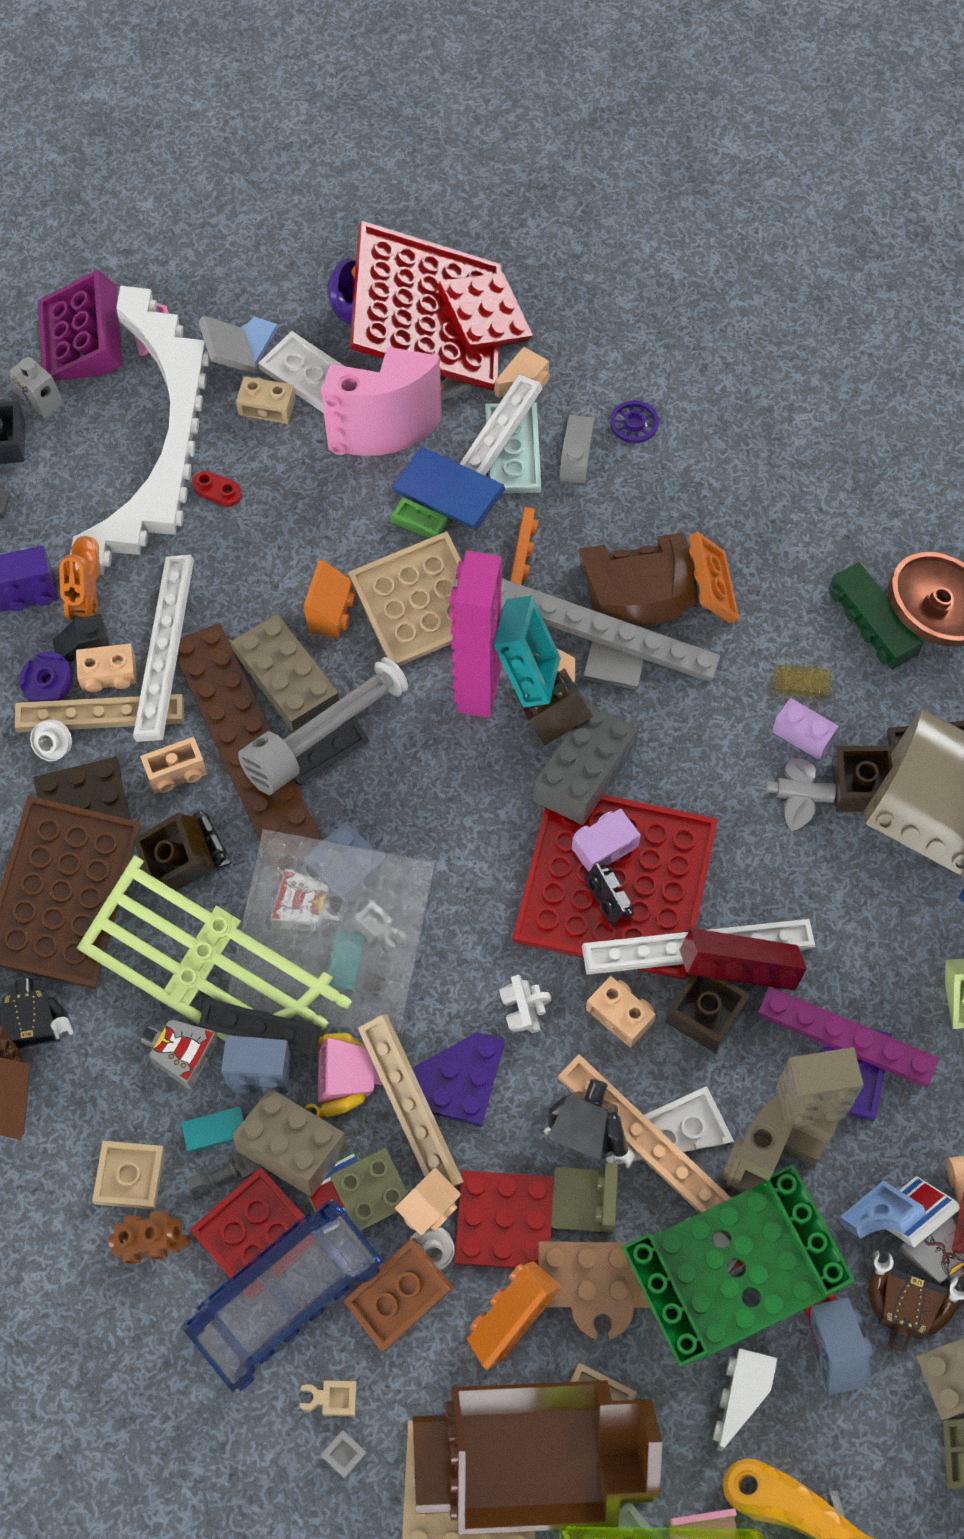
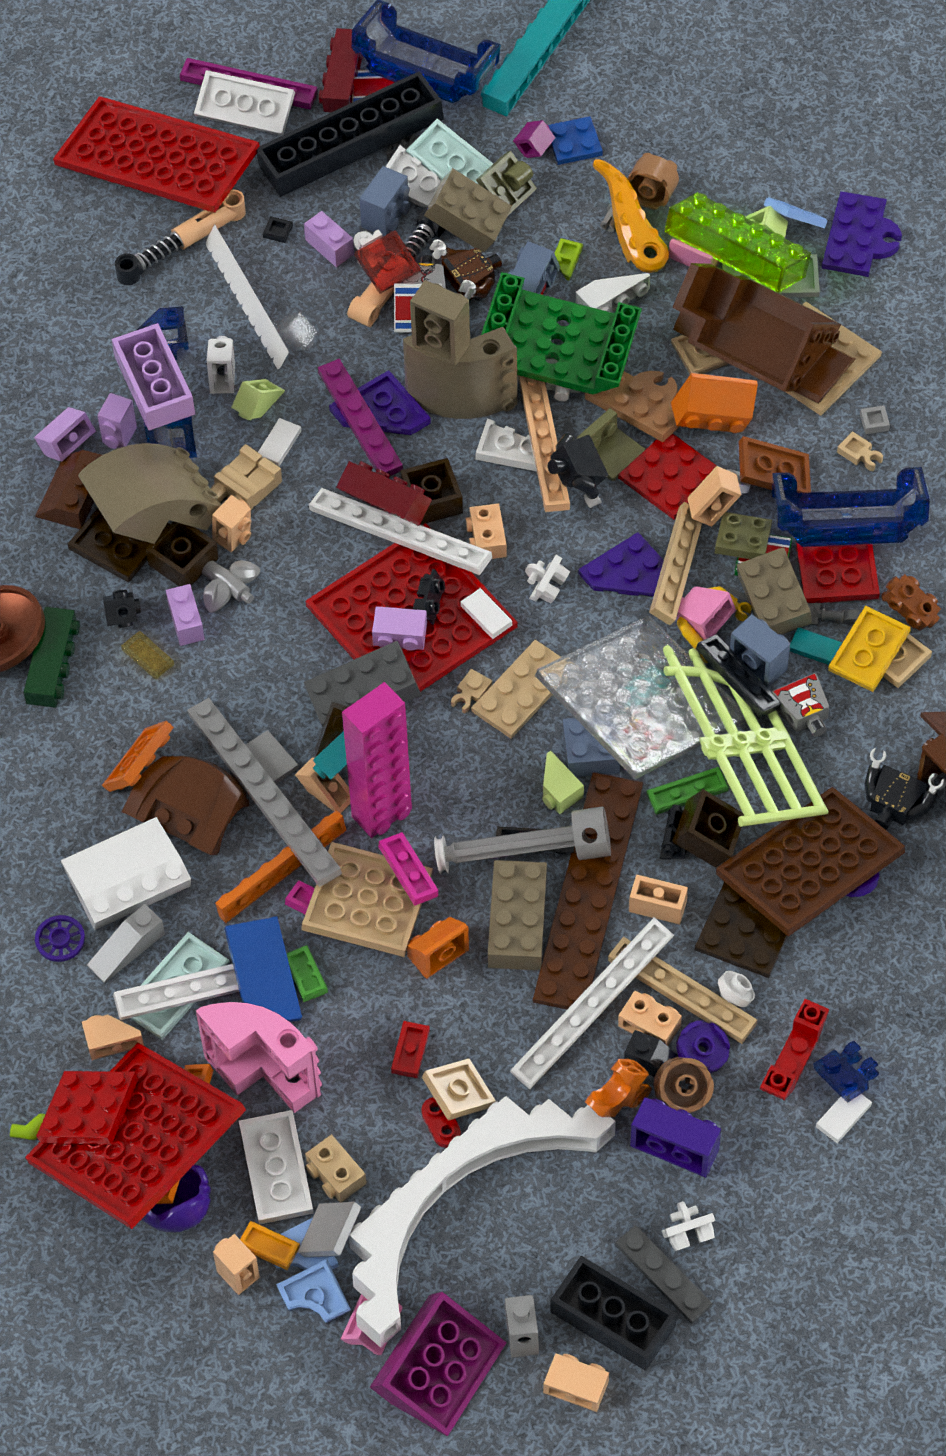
camera: 140 degrees left, 5 degrees down
(33, 623) = (694, 1073): none -> medium nougat brick
(154, 1152) = (869, 648): none -> yellow tile
(218, 510) = (458, 1089): none -> tan plate
(221, 309) = (315, 1290): none -> light blue tile
(232, 889) = (681, 790): none -> bright green tile
(269, 321) = (270, 1245): none -> light orange tile
(277, 285) = (236, 1263): none -> light nougat brick
(285, 520) = (410, 1049): none -> red plate
(341, 806) = (560, 785): none -> yellowish green slope
(404, 639) = (408, 868): none -> dark pink plate
(457, 885) = (516, 692): none -> tan plate
(500, 853) = (471, 688): none -> tan plate
(520, 283) = (27, 1131): none -> lime arm
(545, 919) = (486, 613): none -> white tile
(628, 487) = (126, 873): none -> white slope
(835, 1419) = (567, 256): none -> lime tile
(848, 832) = (231, 523): none -> light nougat brick
(863, 693) = (119, 617): none -> black brick
(887, 896) = (247, 478): none -> tan hips
(900, 966) = (280, 441): none -> white tile

